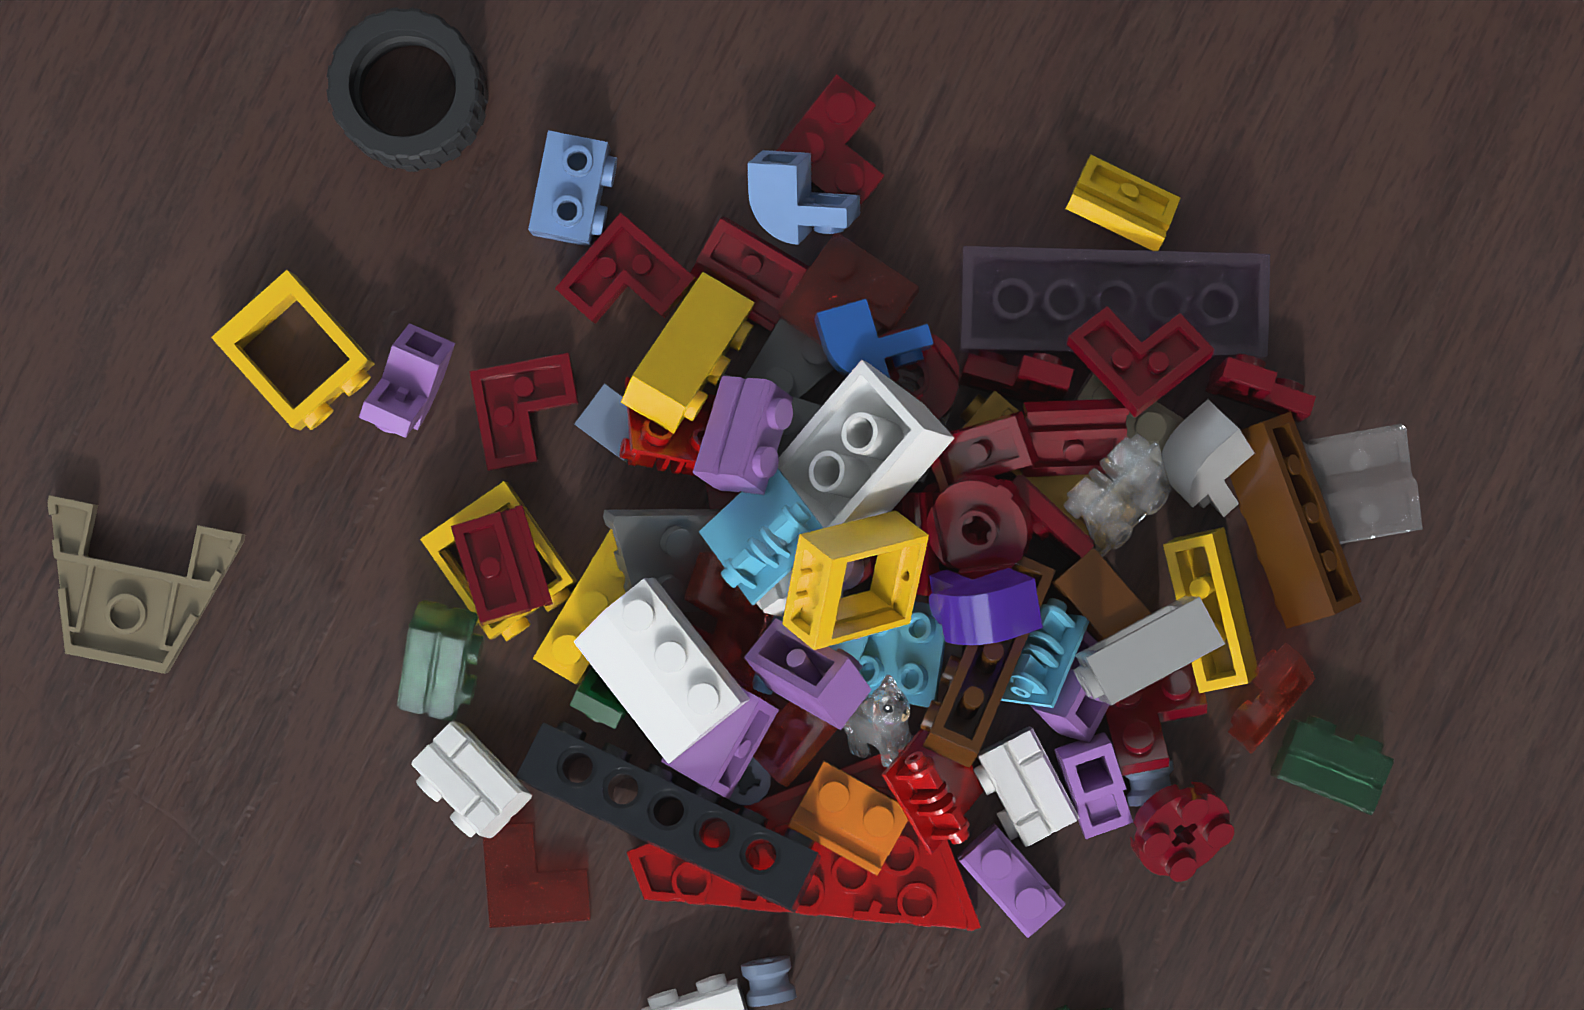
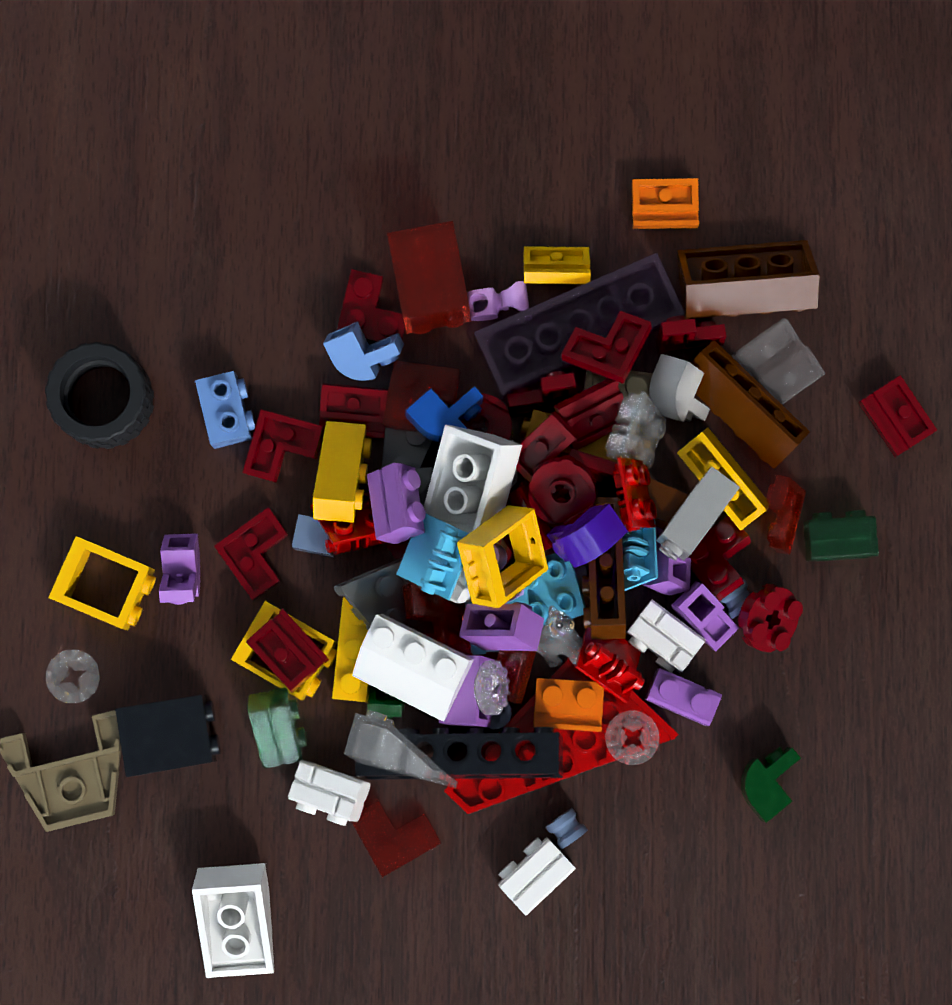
camera: 25 degrees left, 5 degrees down
(181, 441) = (58, 671): none -> clear gear
(264, 890) = (234, 920): none -> white slope
(287, 601) = (167, 735): none -> black slope
(571, 758) = (382, 745): none -> clear slope
(757, 736) = (491, 687): none -> clear gear
(893, 892) = (632, 754): none -> clear gear
(938, 140) = (429, 277): none -> clear red slope
(1001, 211) = (487, 303): none -> lavender leg
(1085, 560) = (634, 479): none -> red hinge
(1316, 186) = (665, 203): none -> orange plate
(1379, 347) = (748, 279): none -> reddish brown slope
(1493, 635) = (897, 416): none -> dark red plate

